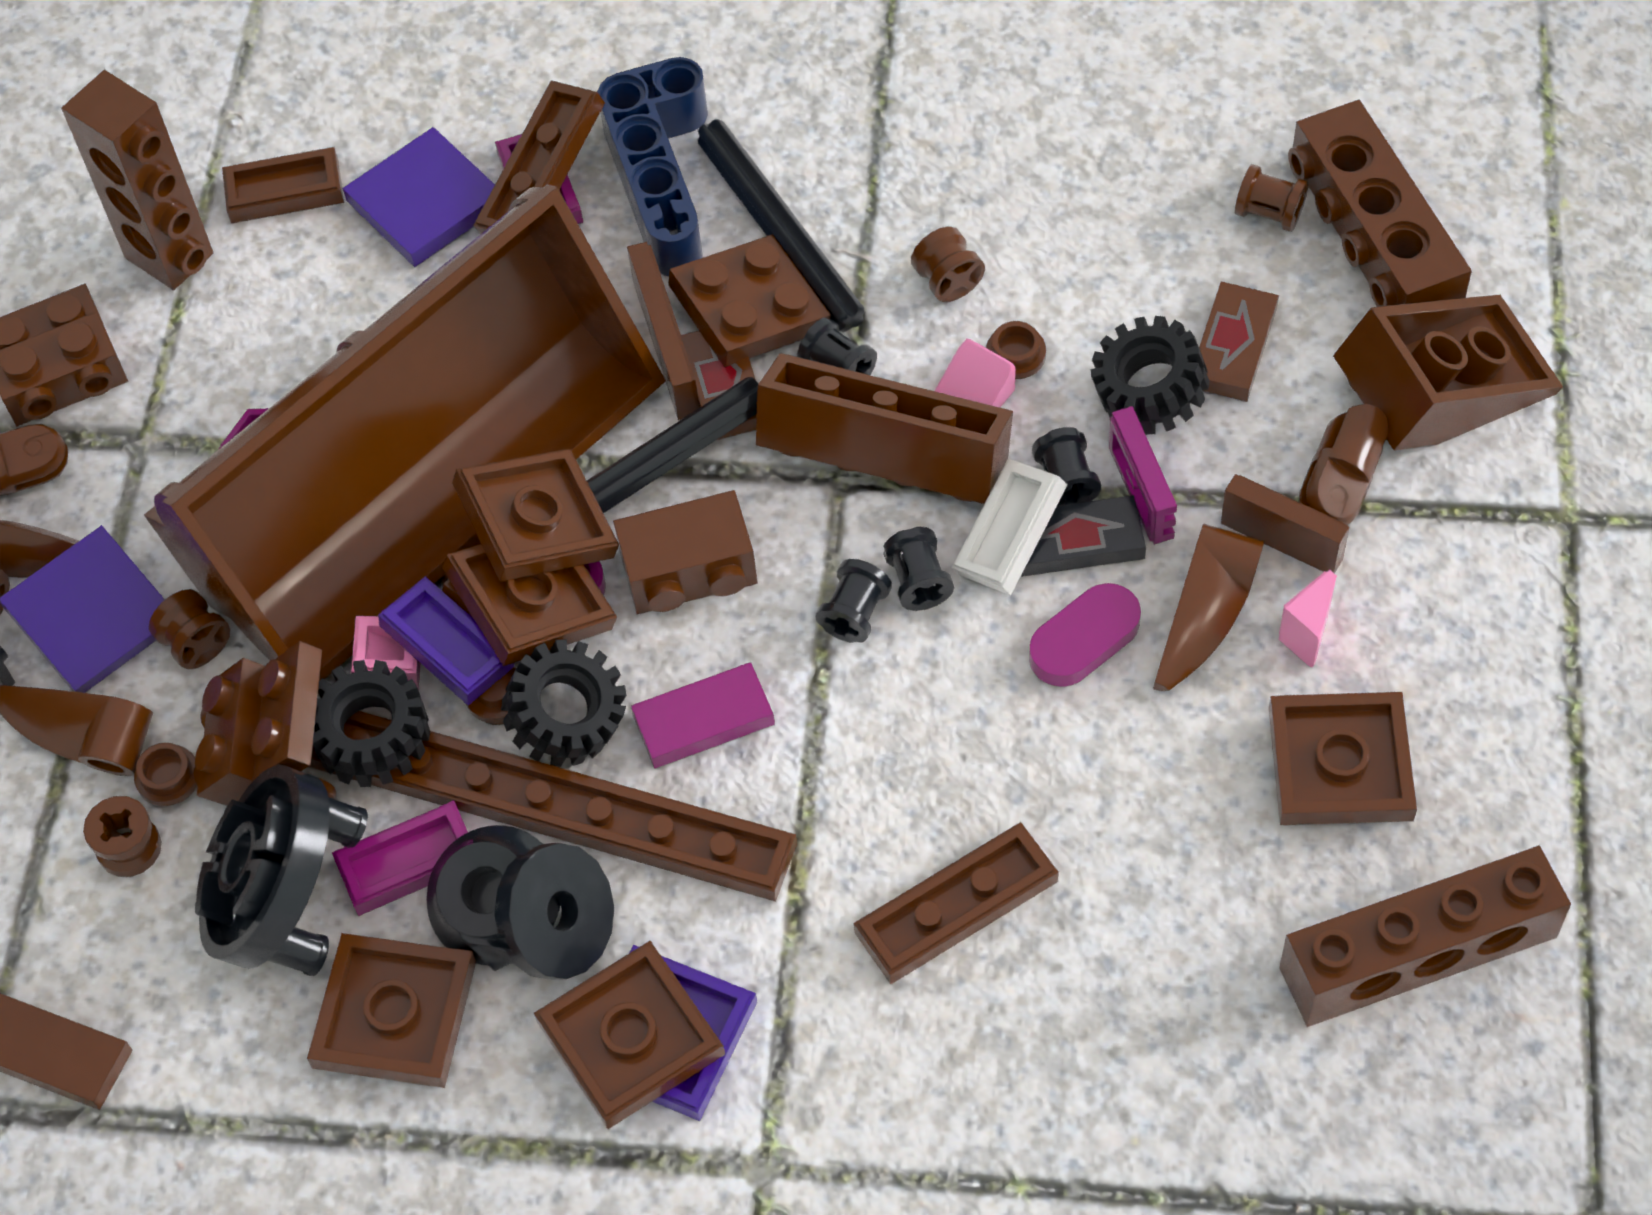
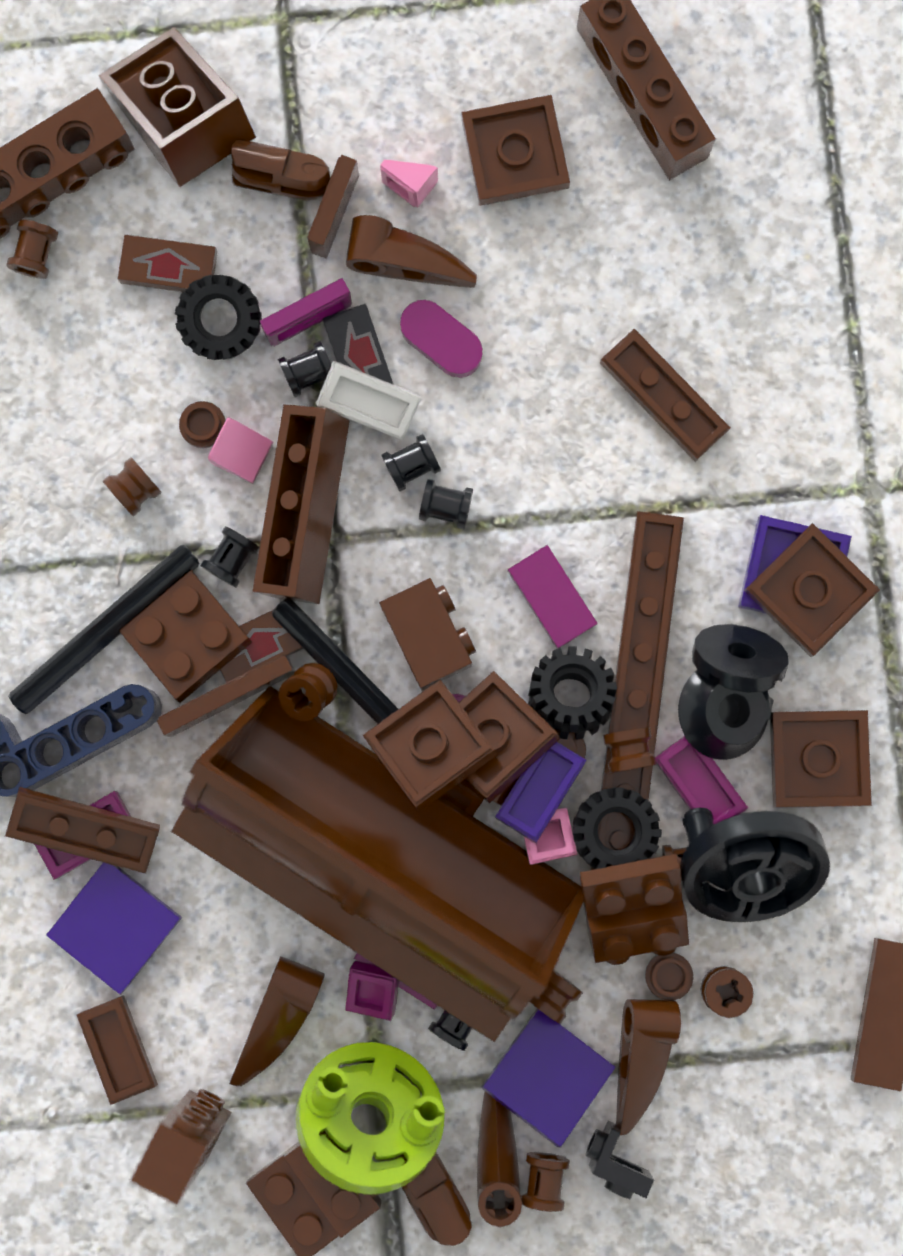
camera: 105 degrees left, 25 degrees up
(140, 359) = (412, 1121): none -> lime piece
(267, 338) = (279, 1017): none -> reddish brown piece
(467, 752) = (629, 749): none -> reddish brown wheel
(642, 403) = (319, 687): none -> reddish brown wheel

